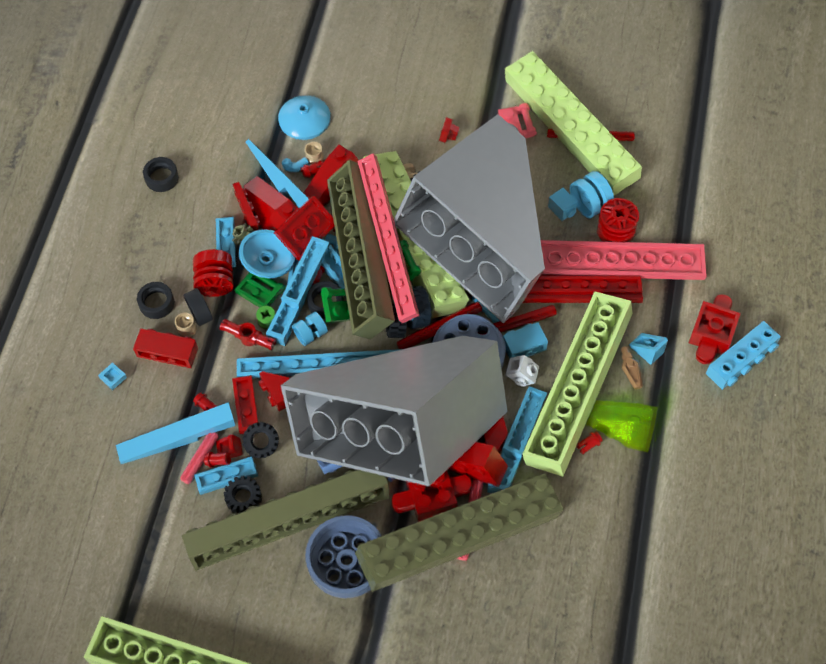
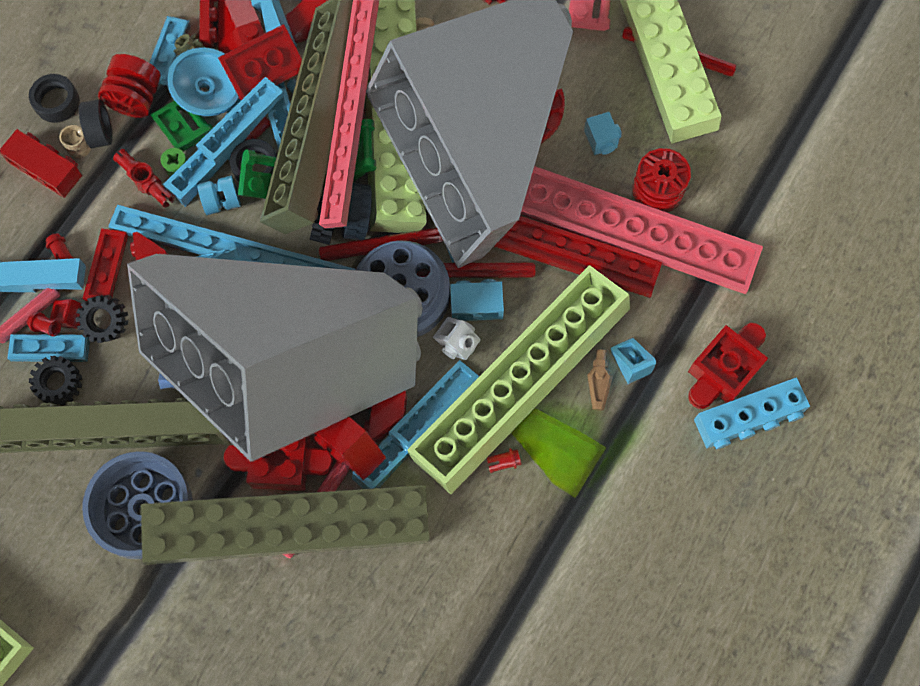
camera: 20 degrees right, 10 degrees up
(591, 193) = (641, 131): medium azure wheel -> none

